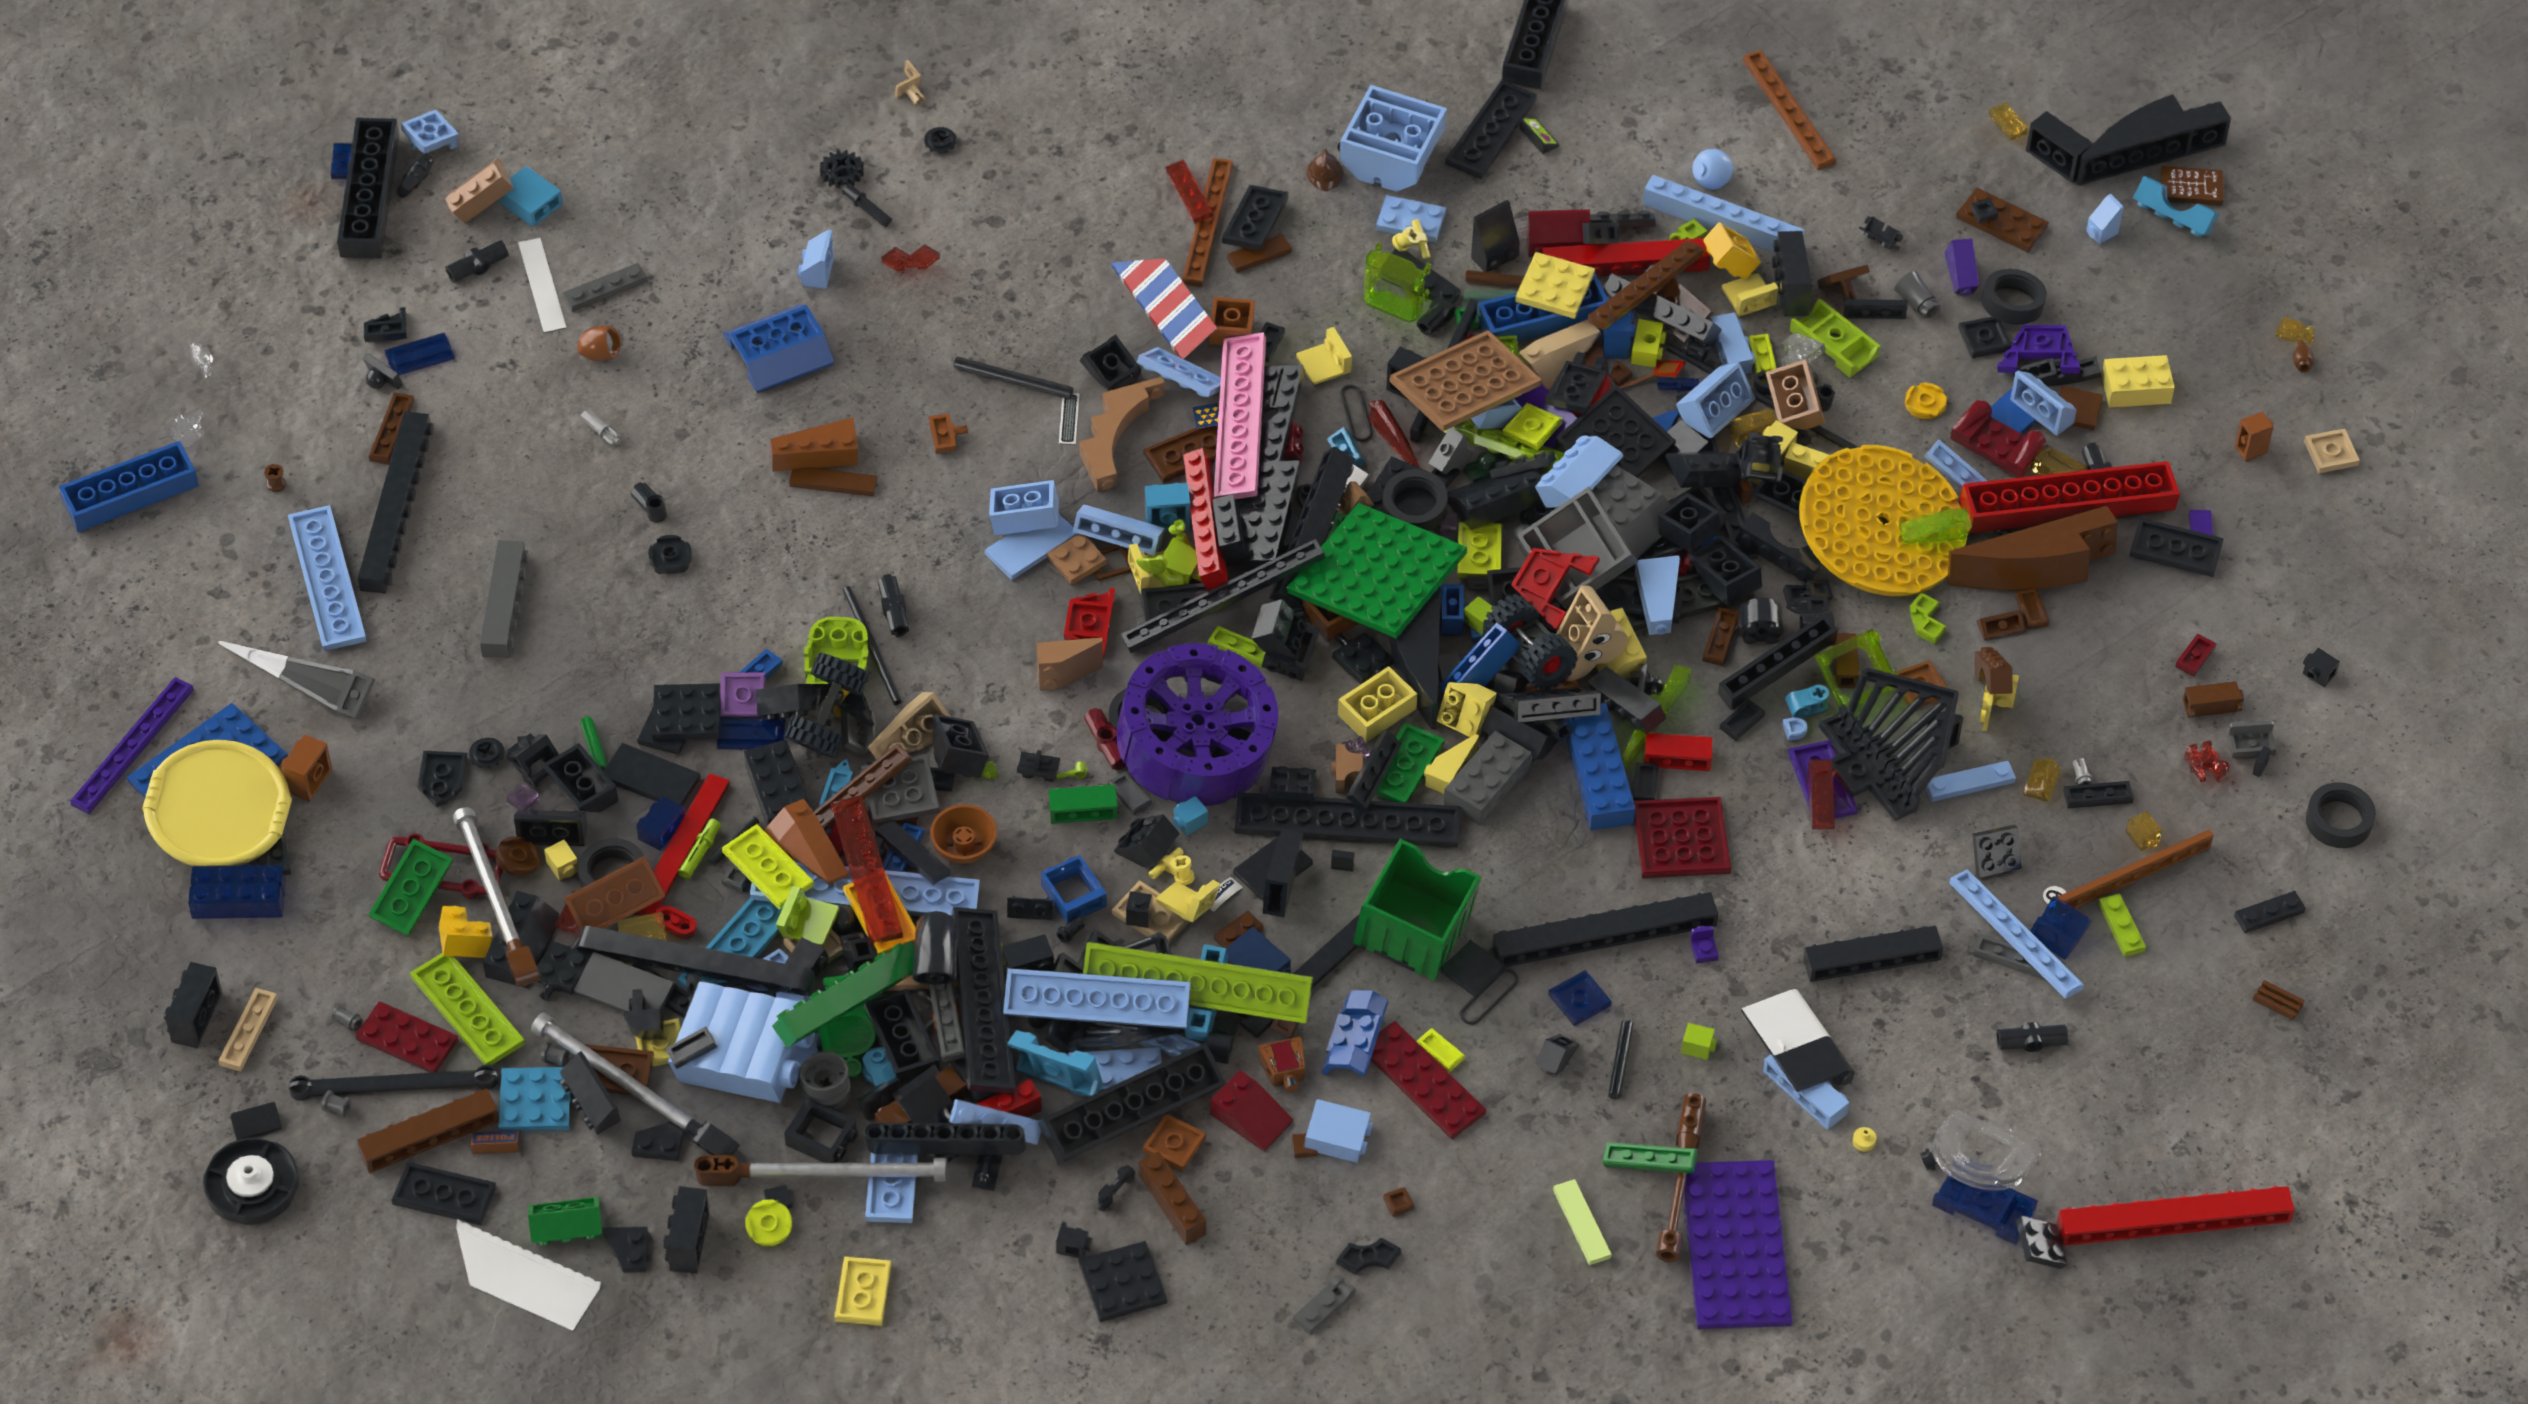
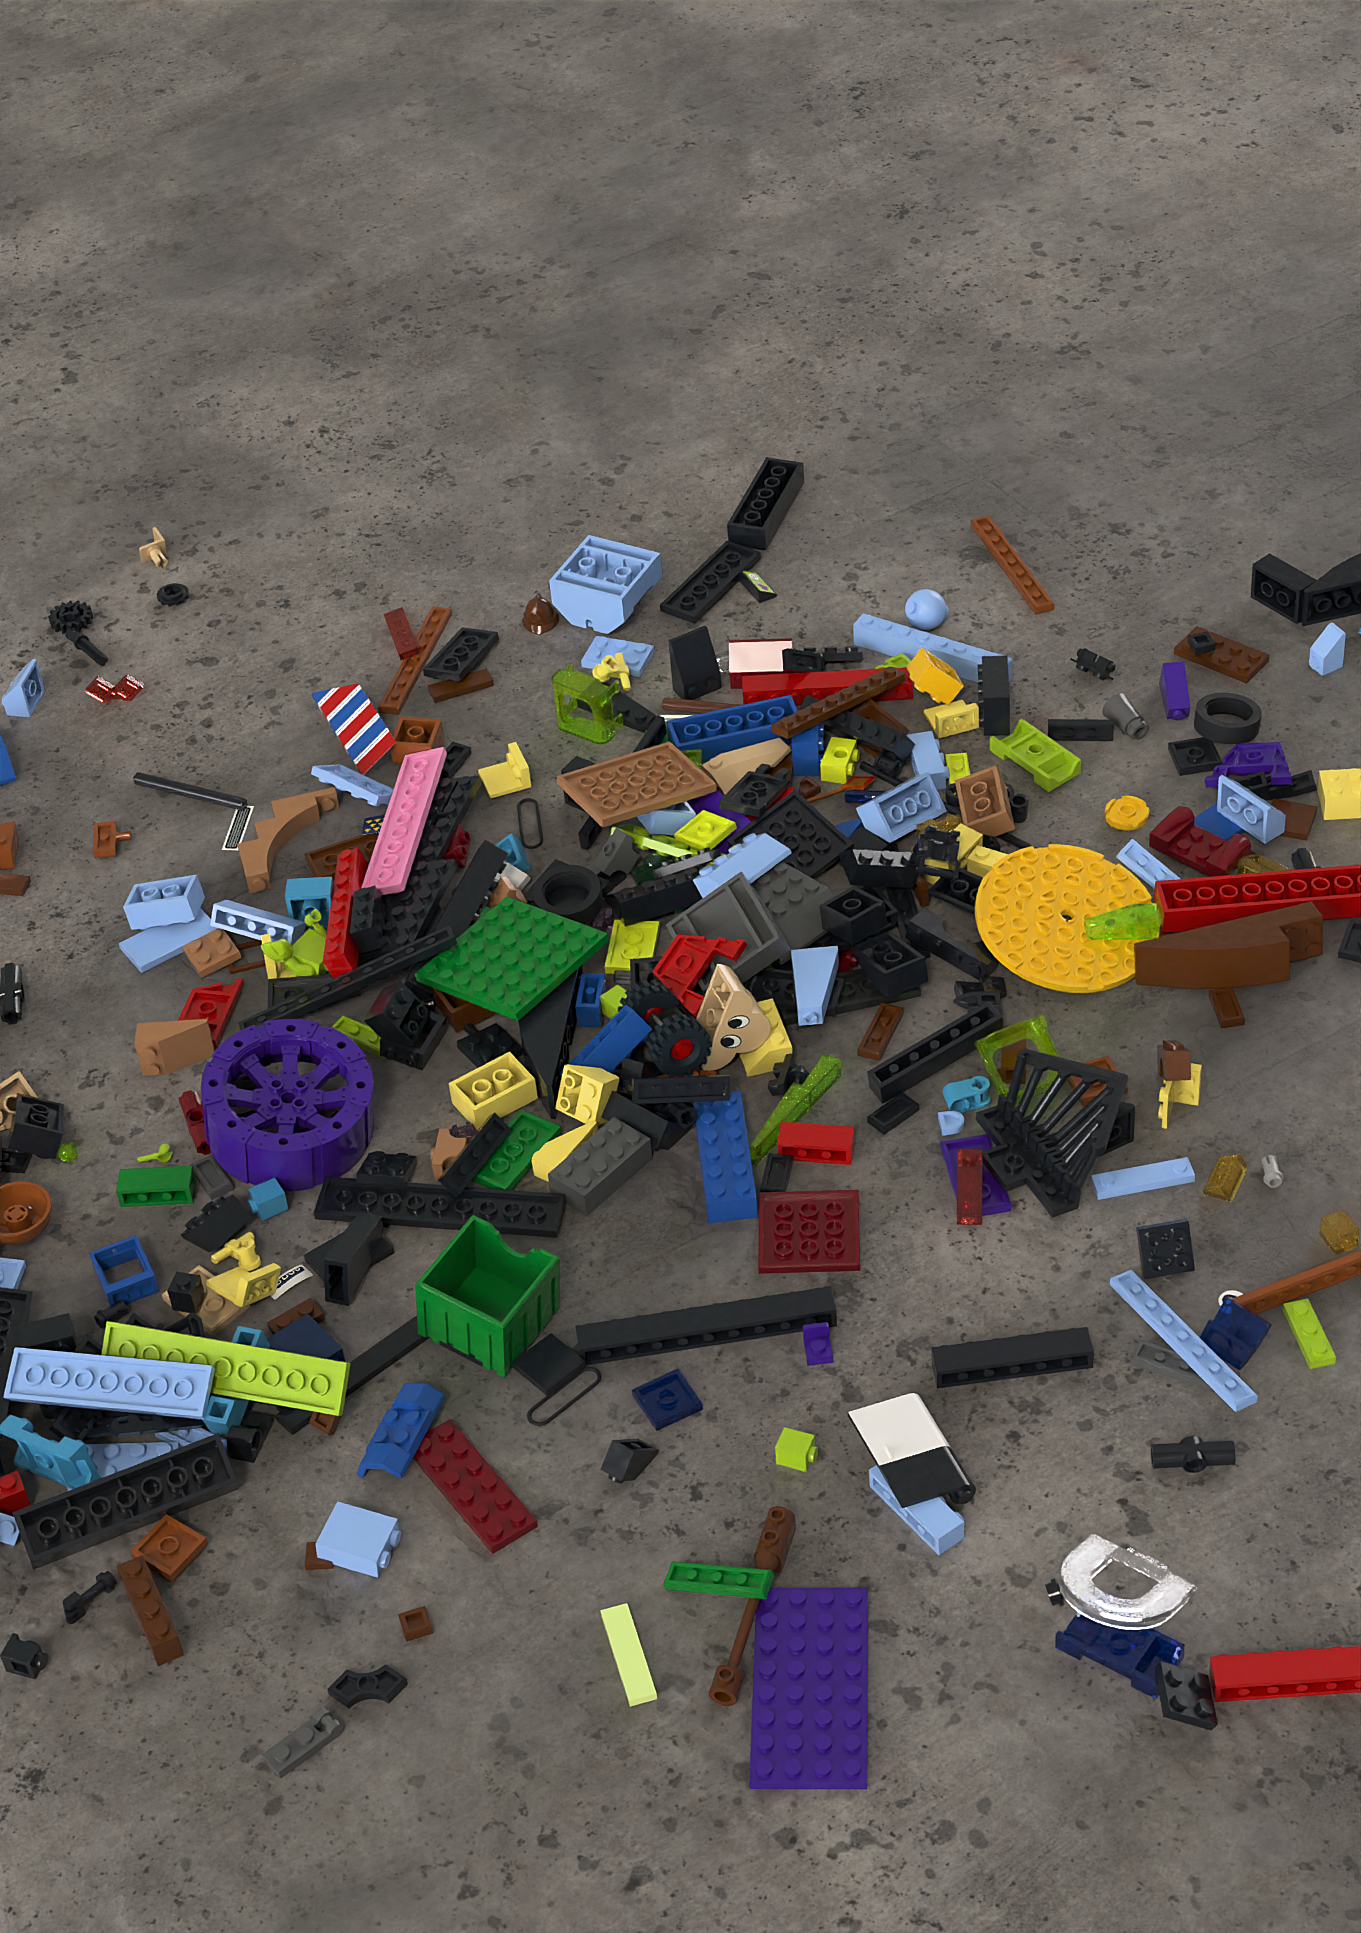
camera: 10 degrees right, 10 degrees down
(1029, 908) = (72, 1291): black hinge -> none
(1038, 765) = (118, 1146): black hips -> none
(1111, 364) = (287, 776): black slope -> none
(1122, 1281) = (72, 1707): black plate -> none
(1250, 1111) = (263, 1514): dark red slope -> none
(1283, 1062) = (314, 1461): torso -> none
(1342, 860) = (425, 1247): black tile -> none
(1390, 430) = (560, 836): clear red piece -> none
(1438, 312) = (629, 733): black piece -> none
(1441, 1050) = (497, 1453): neon yellow tile -> none
(1555, 285) = (747, 704): light yellow plate -> none
(1620, 1059) = (703, 1468): black axle -> none
(1627, 700) = (763, 1088): black brick -> none
(1760, 621) = (922, 1012): black brick -> none
(1801, 348) = (1005, 762): clear plate -> none
(1844, 280) = (1049, 701): reddish brown tile -> none
(1864, 1139) = (981, 1567): light yellow tile -> none
(1924, 625) = (1104, 1018): lime tile -> none
(2001, 624) = (1191, 1022): reddish brown slope -> none
(2008, 121) = (1233, 571): clear yellow plate -> none
(2098, 794) = (1289, 1194): black tile -> none

